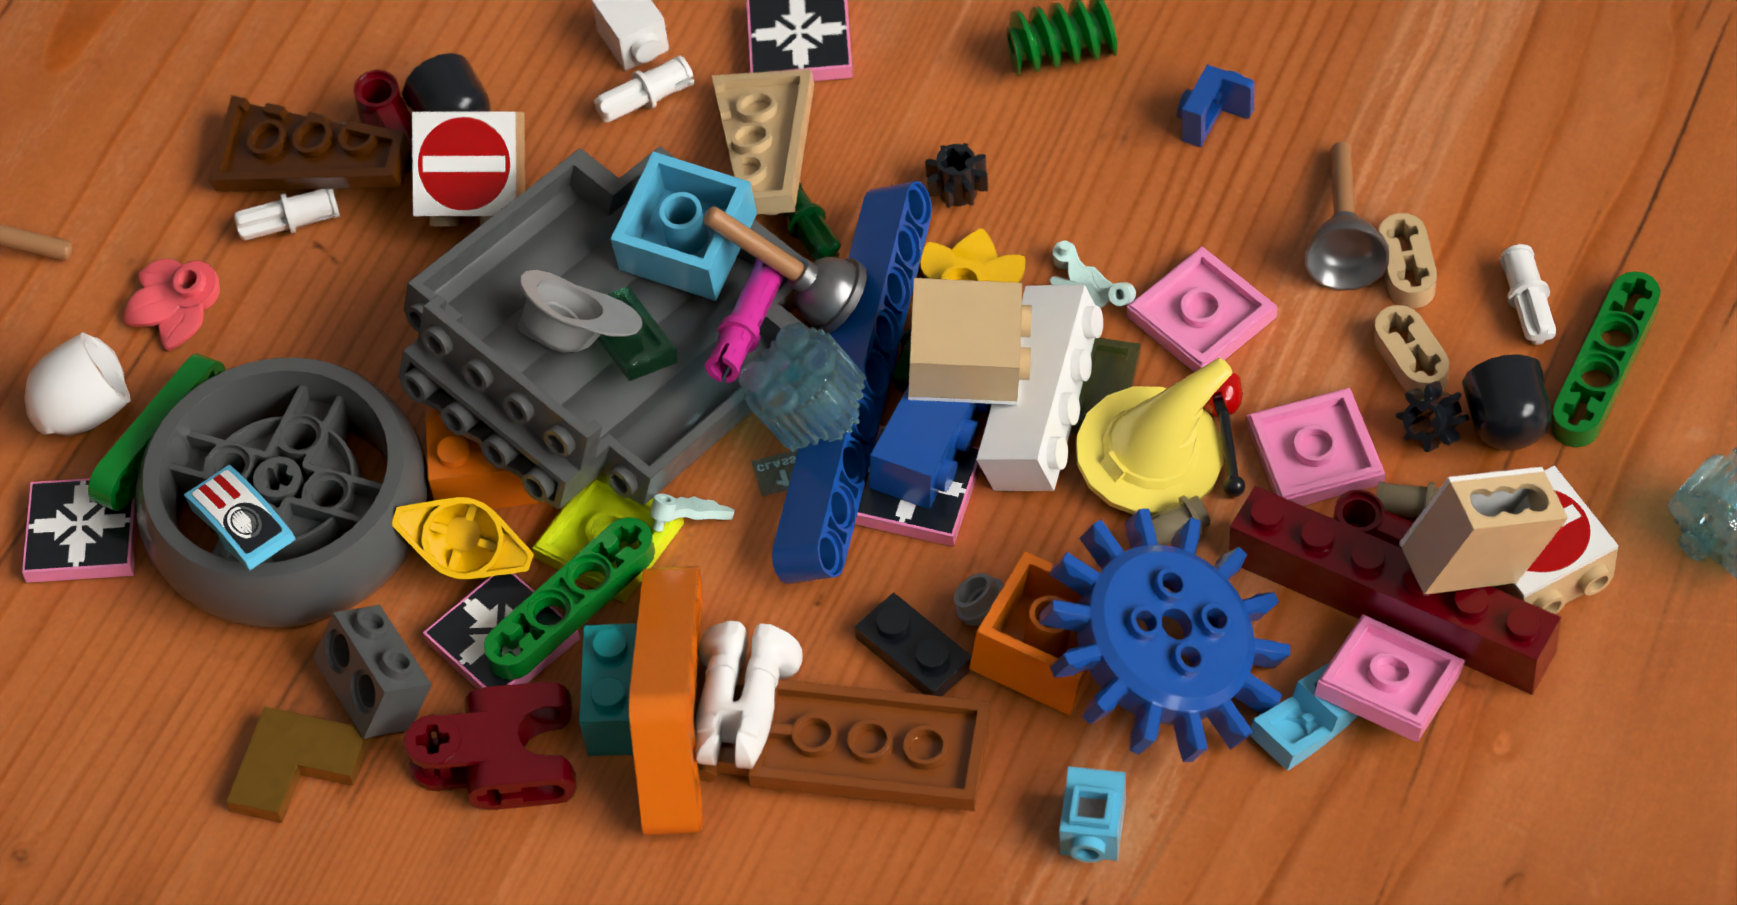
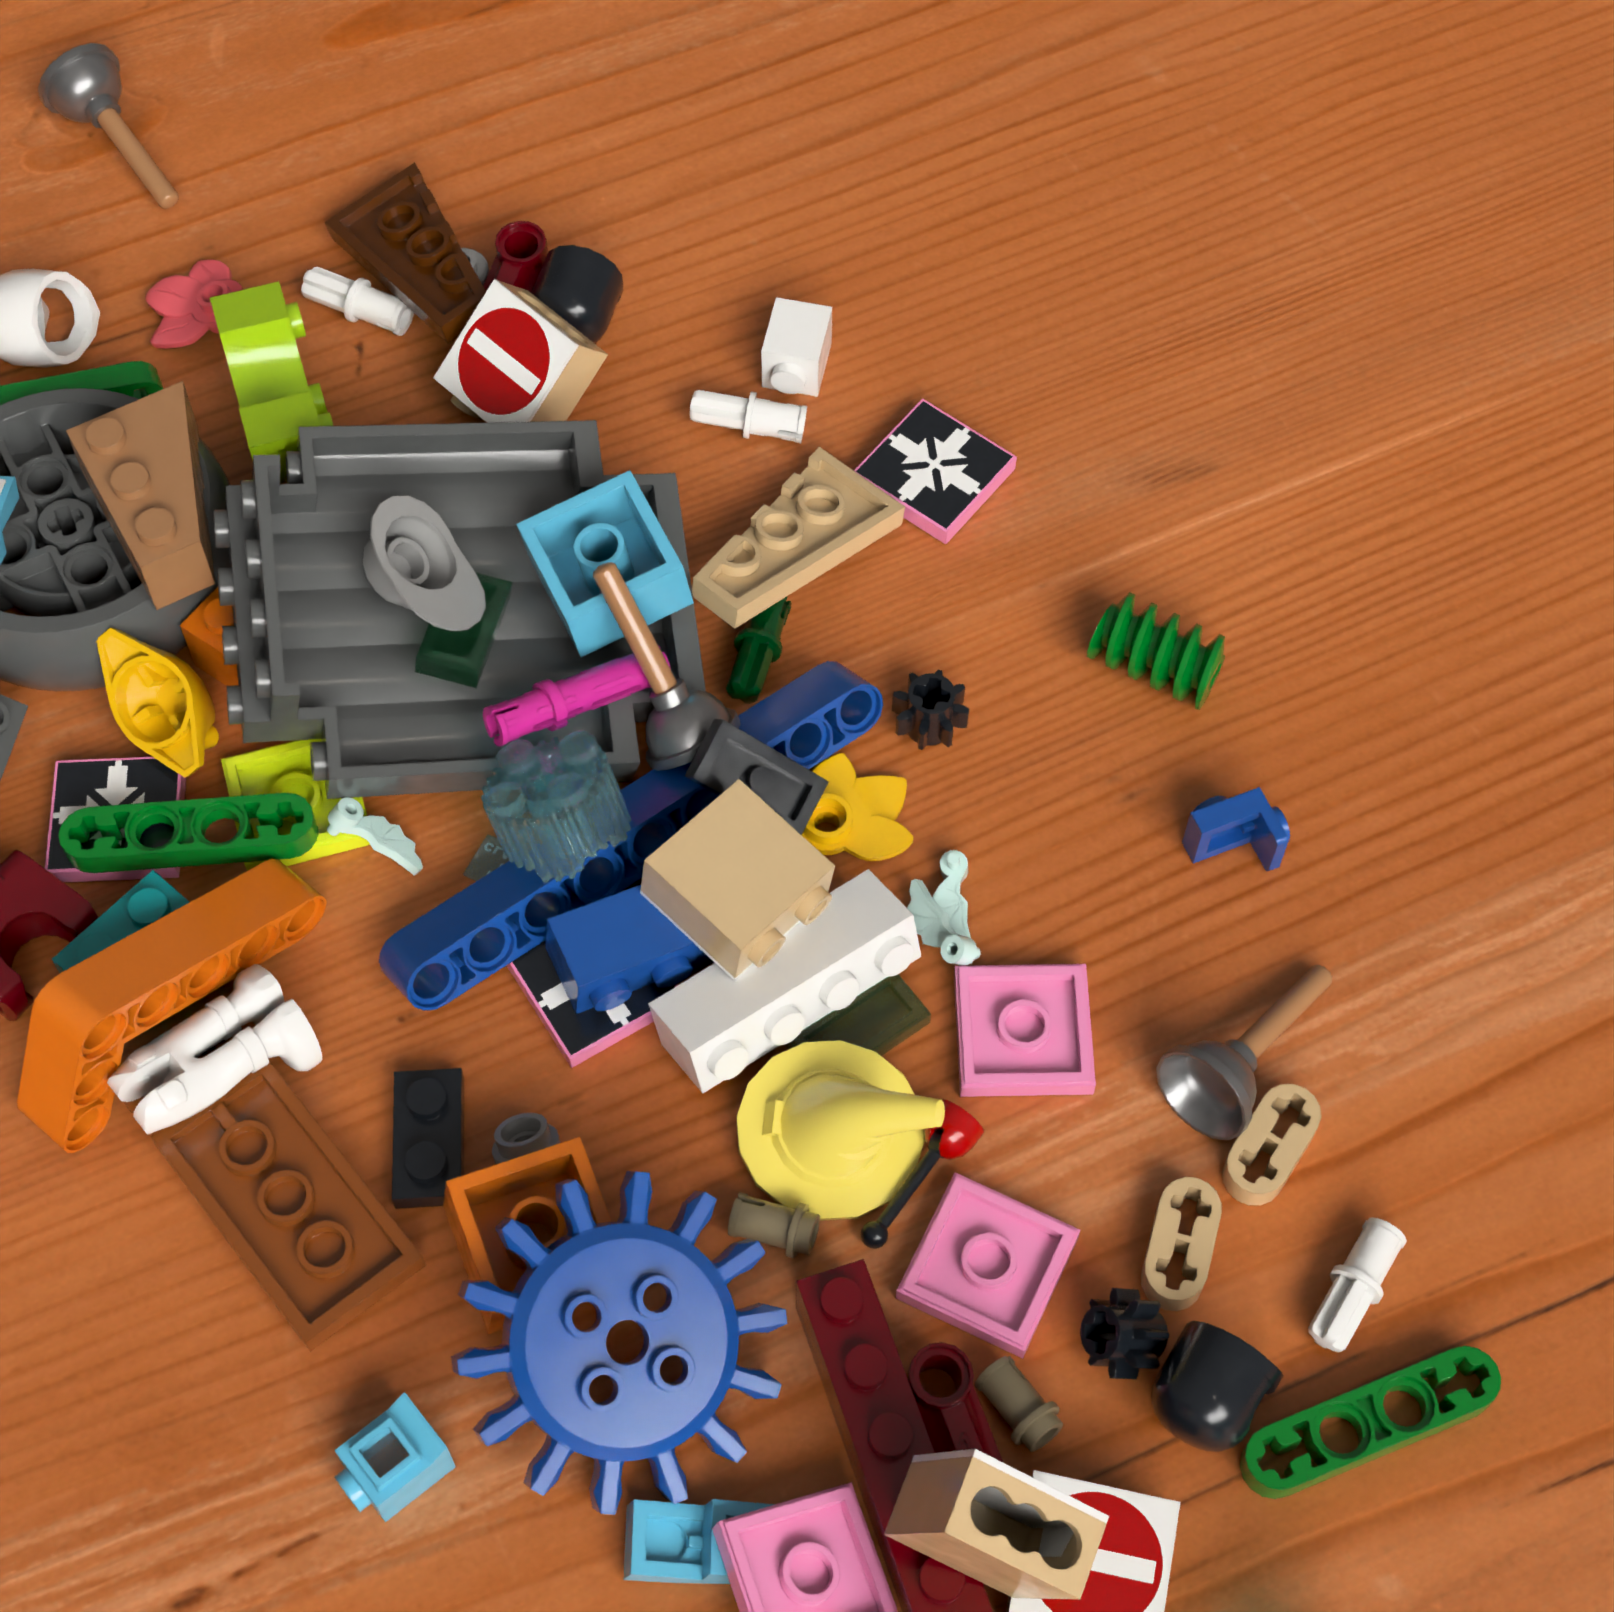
camera: 35 degrees right, 5 degrees up
(309, 309) = (267, 369): none -> lime brick
(343, 401) = (151, 489): none -> medium nougat wedge
(889, 277) = (779, 781): none -> black plate

